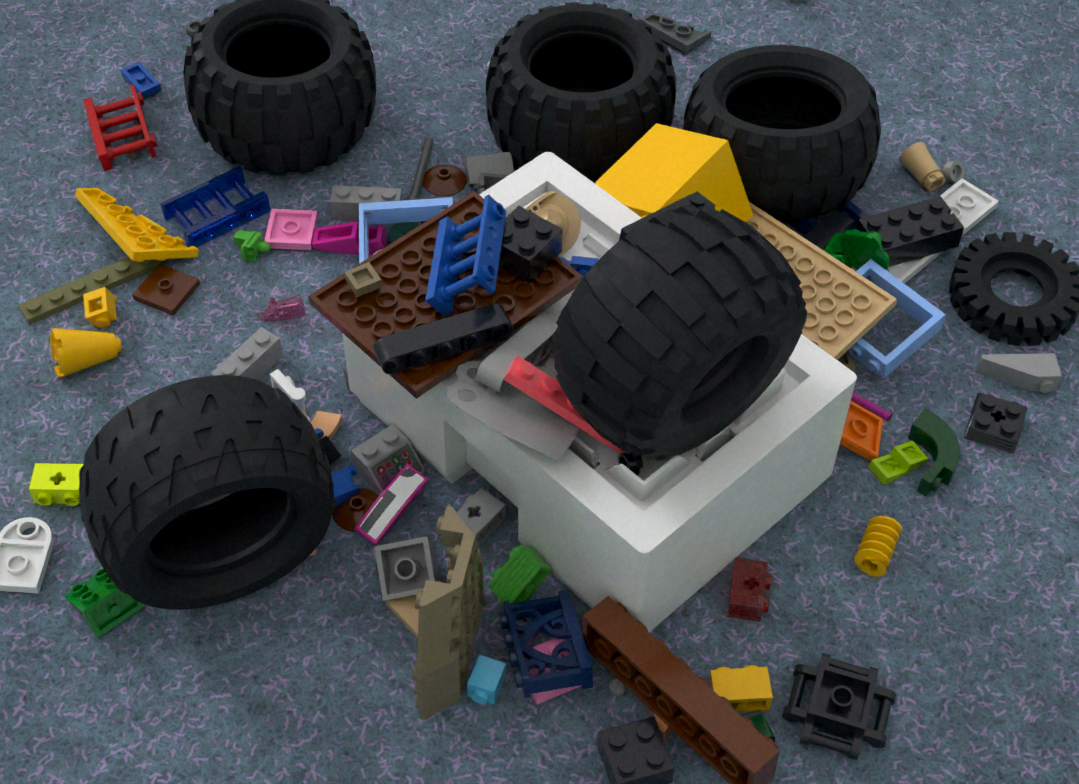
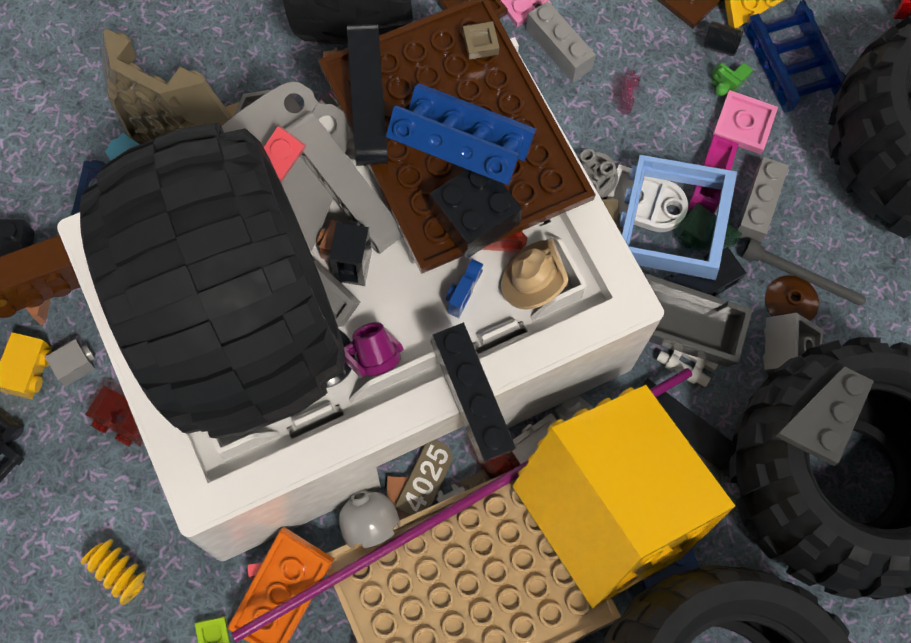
camera: 105 degrees right, 20 degrees up
(210, 249) = (723, 38): none -> black piece
(576, 78) = (829, 417): none -> dark grey wing
(717, 648) = (71, 362): none -> light grey brick

